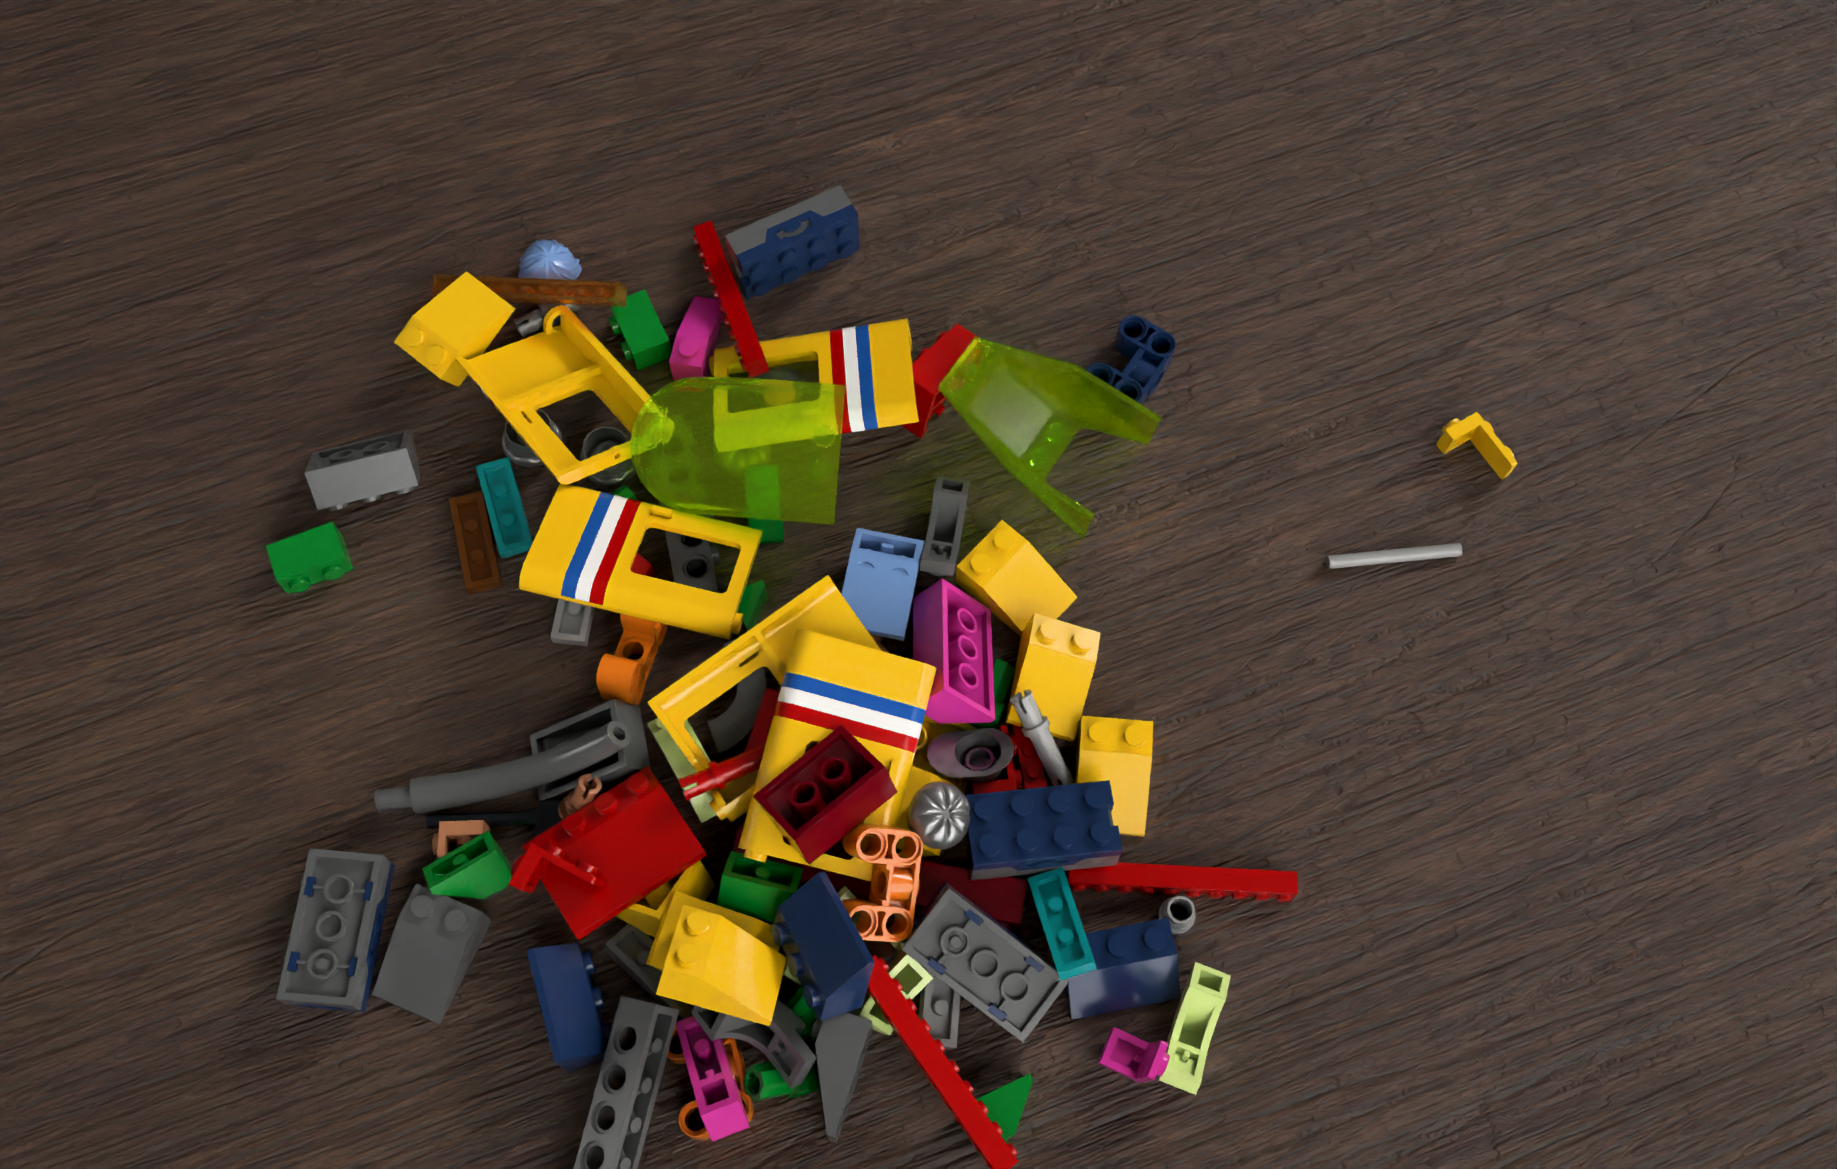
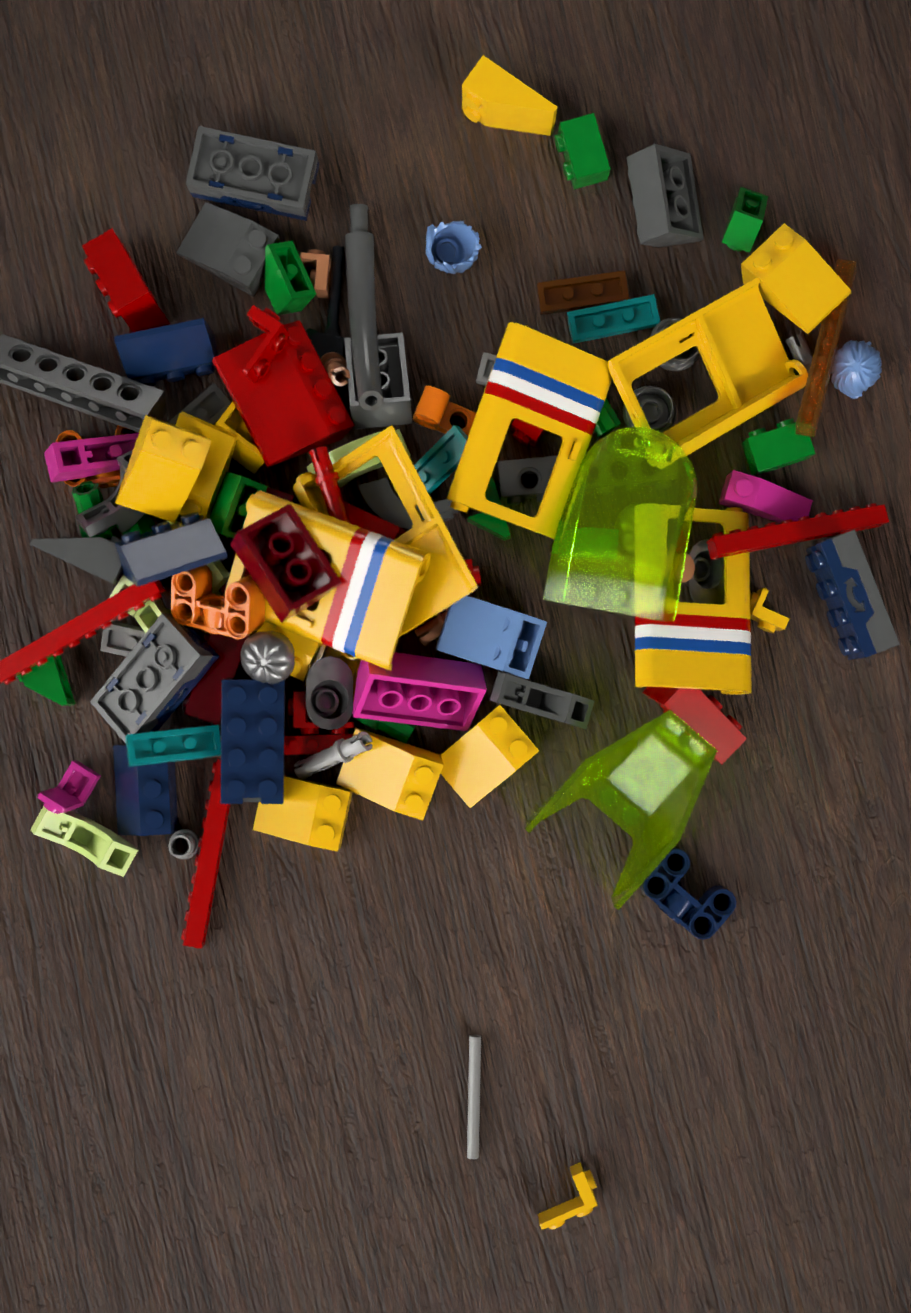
camera: 105 degrees right, 20 degrees up
(250, 641) = (504, 101): none -> yellow slope
(389, 385) = (745, 220): none -> green slope
(426, 681) = (452, 246): none -> medium blue hair
(481, 1079) = (122, 283): none -> red wedge
(678, 659) = (441, 458): none -> teal plate
(826, 319) = (767, 619): none -> yellow bracket

